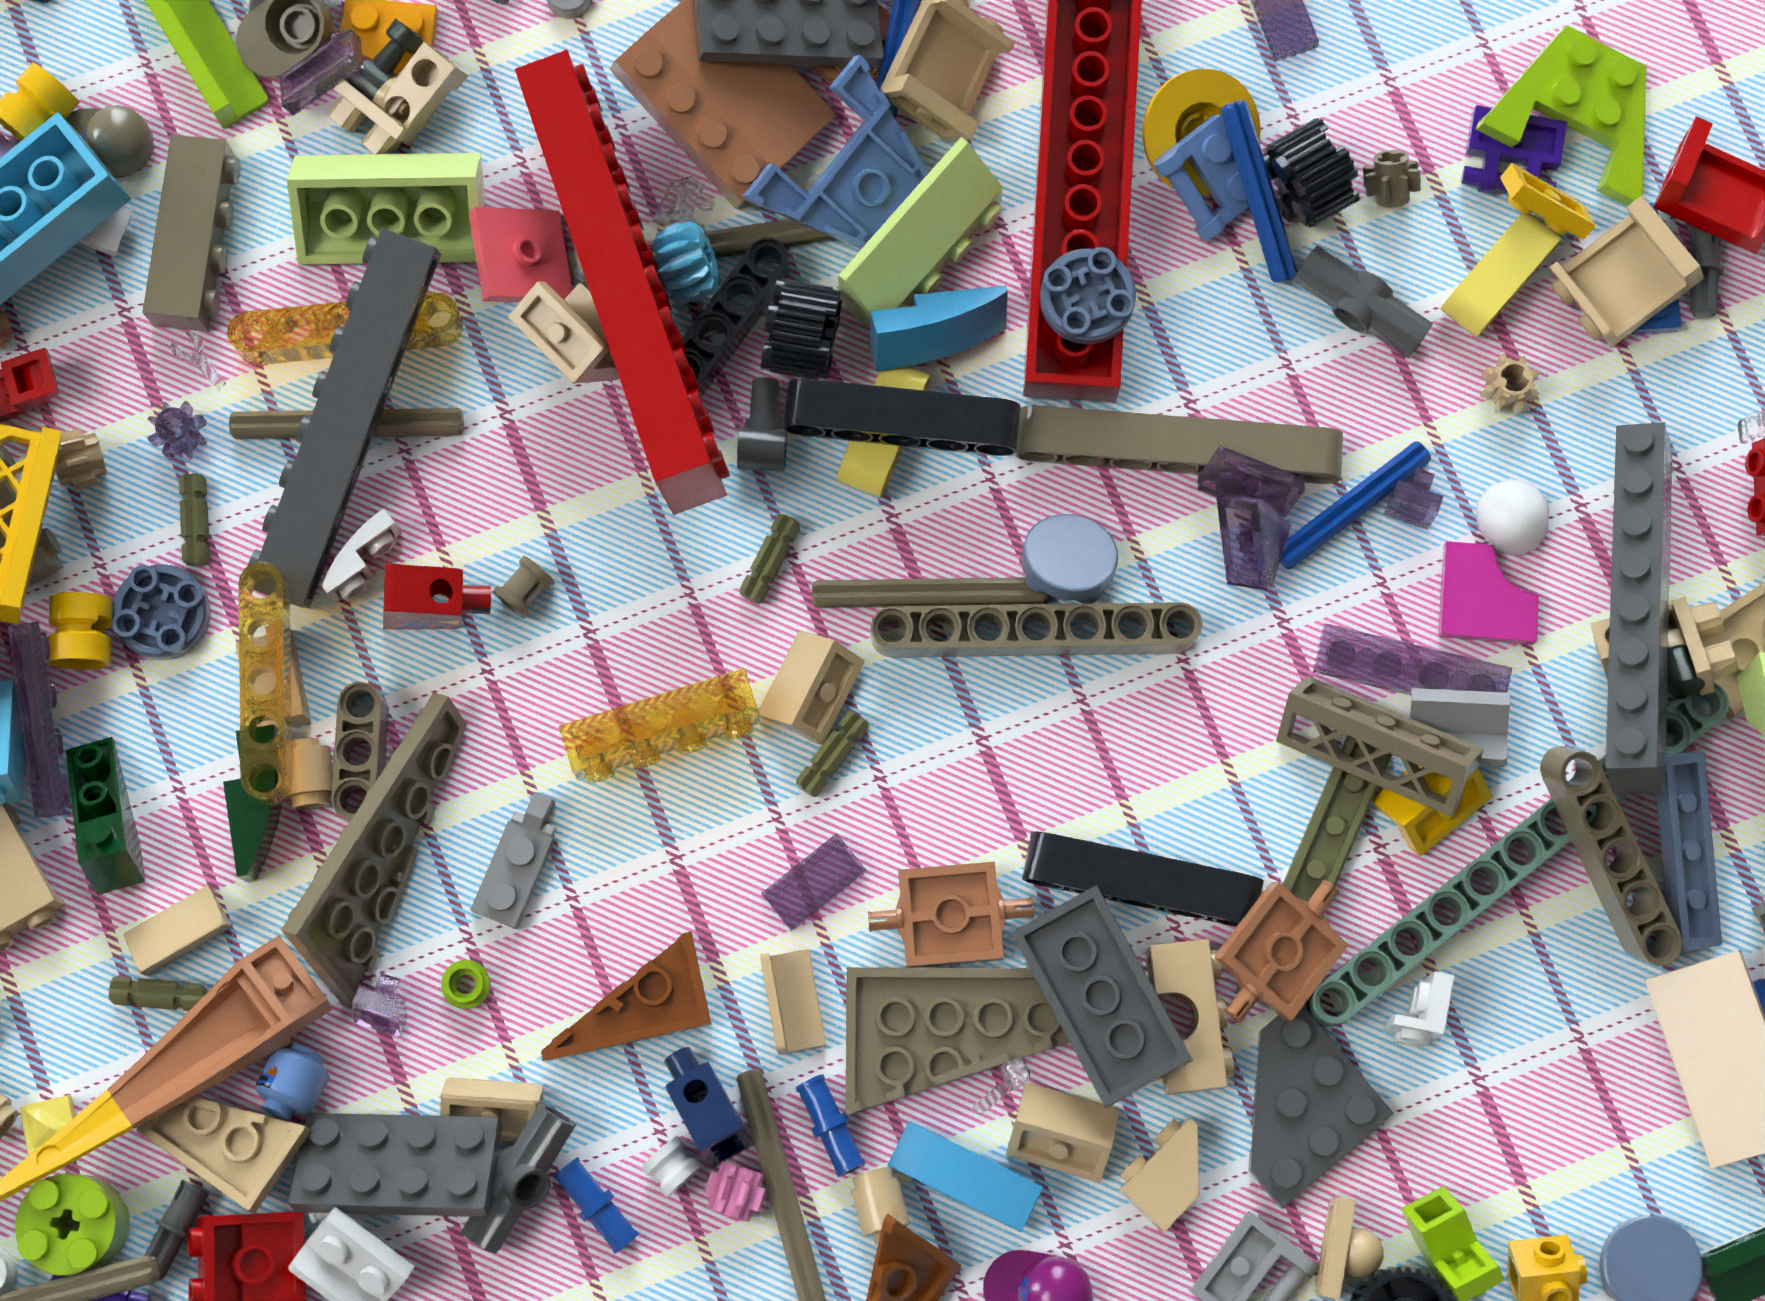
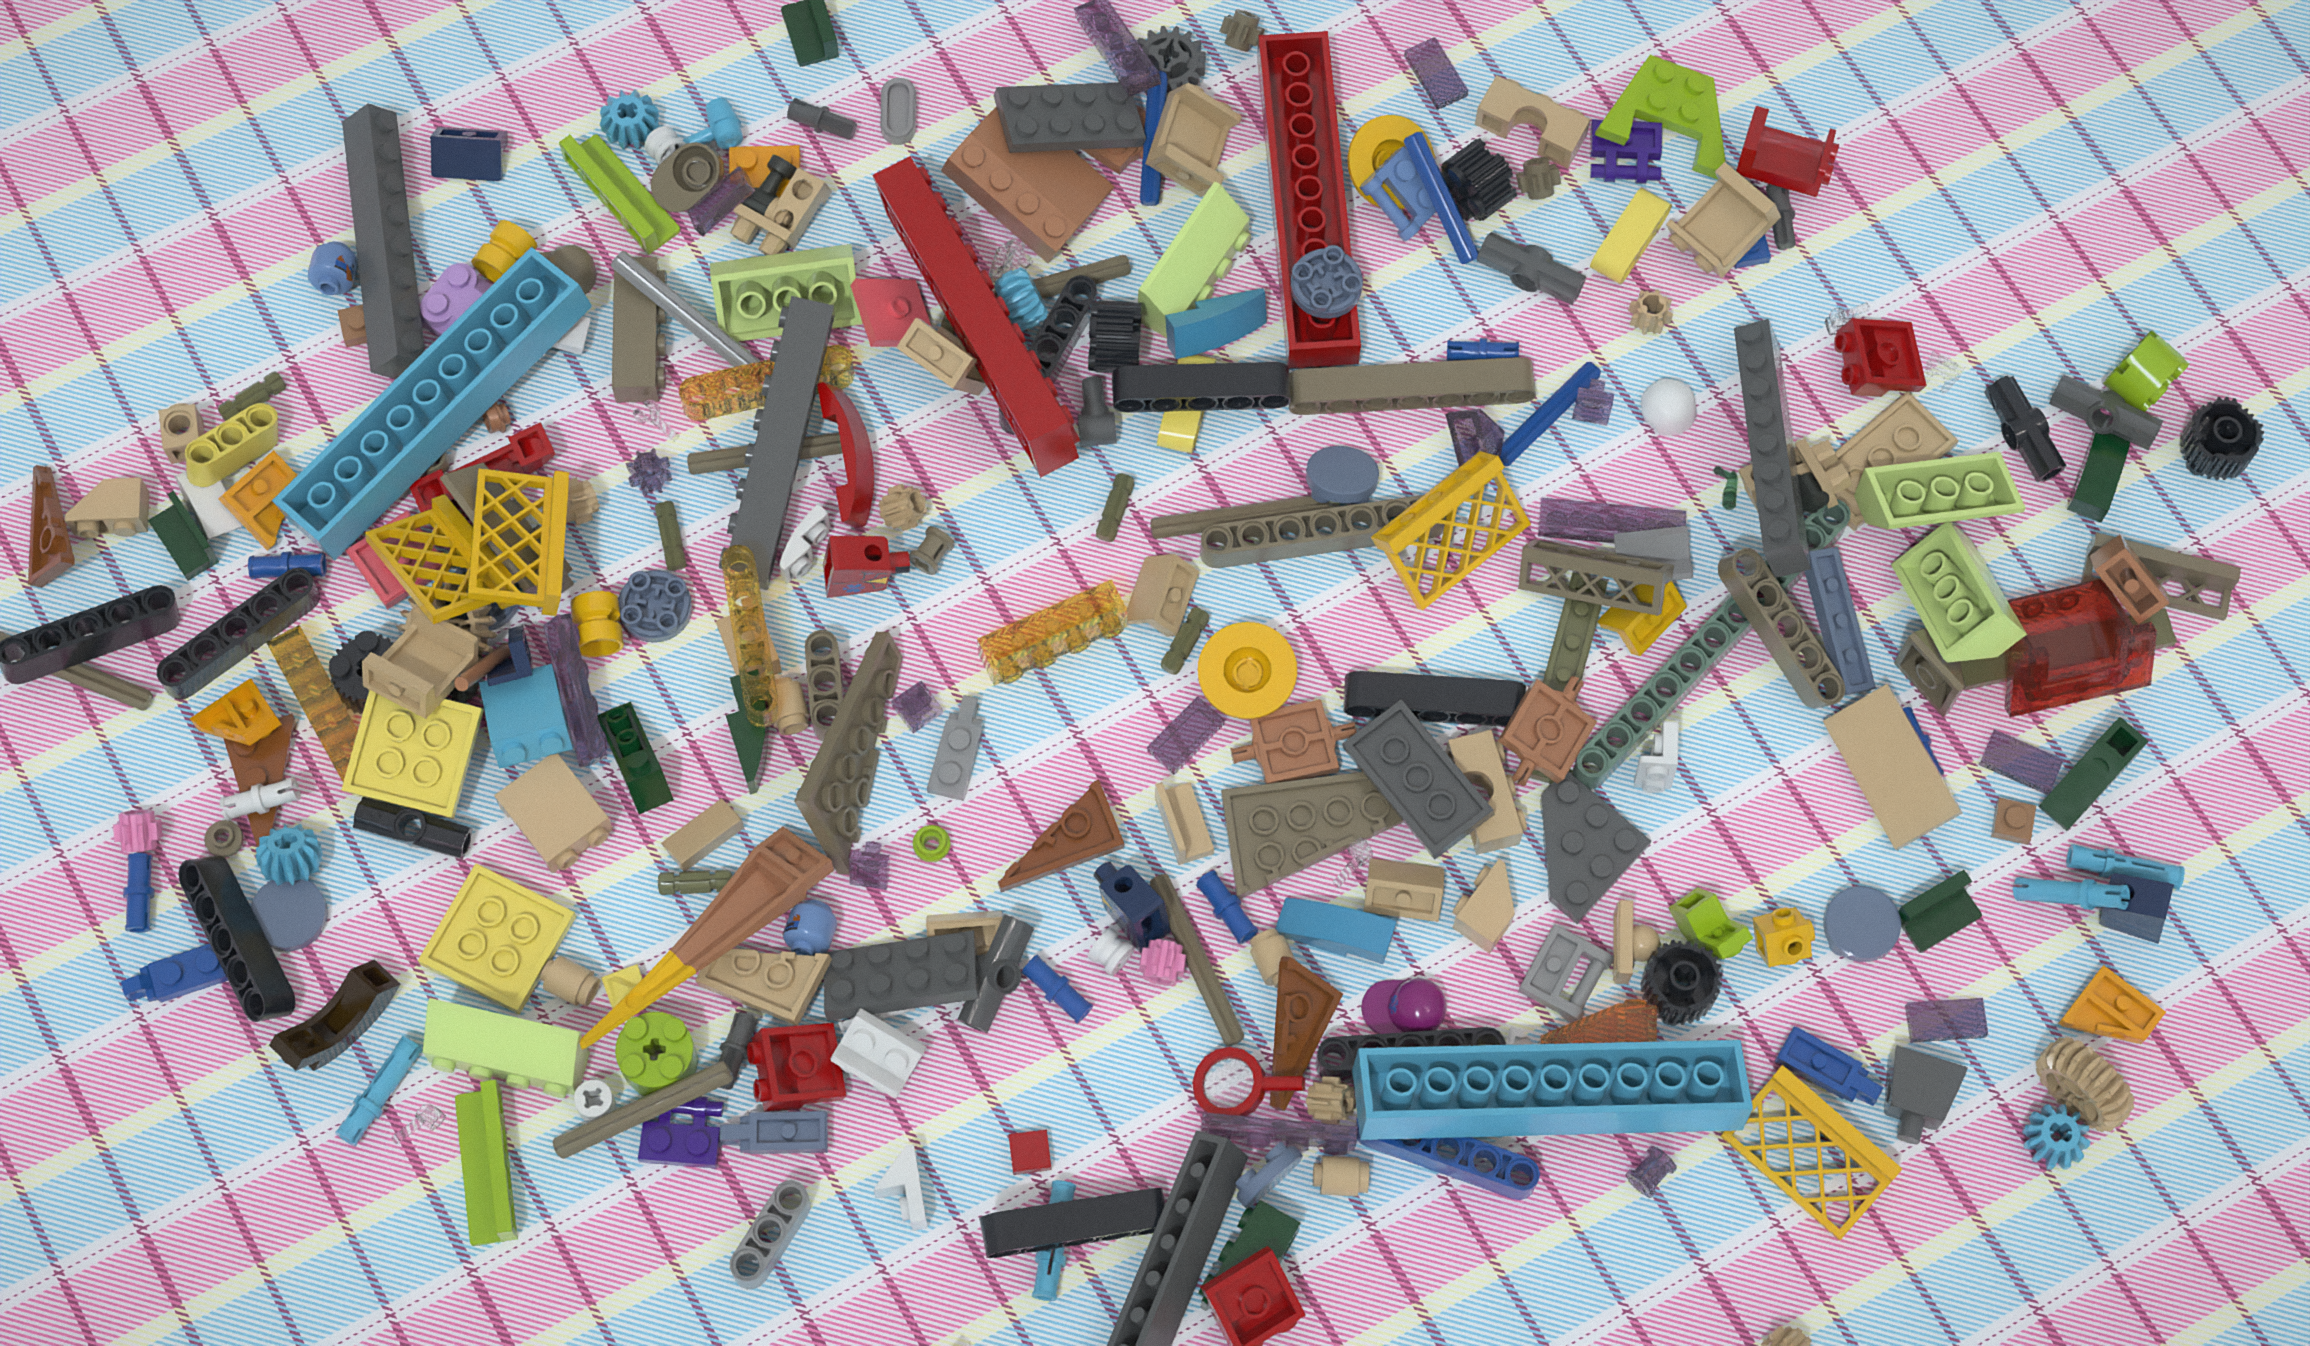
camera: 10 degrees left, 10 degrees down
(248, 220) = (681, 310): none -> light grey axle
(444, 443) = (857, 495): none -> red slope
(475, 795) = (917, 707): none -> clear purple tile
(494, 524) = (902, 507): none -> tan gear
(863, 180) = (1143, 226): medium blue wing -> none
(904, 811) = (1247, 670): none -> yellow hat
(1188, 626) = (1432, 508): none -> yellow fence
(1246, 477) = (1458, 396): clear purple plate -> none
(1279, 408) = (1481, 350): none -> blue pin
(1371, 69) = (1511, 104): none -> tan arch
(1480, 600) = (1654, 469): dark pink tile -> none
(1557, 208) = (1645, 175): yellow plate -> none
(1574, 644) = (1729, 494): none -> clear green piece

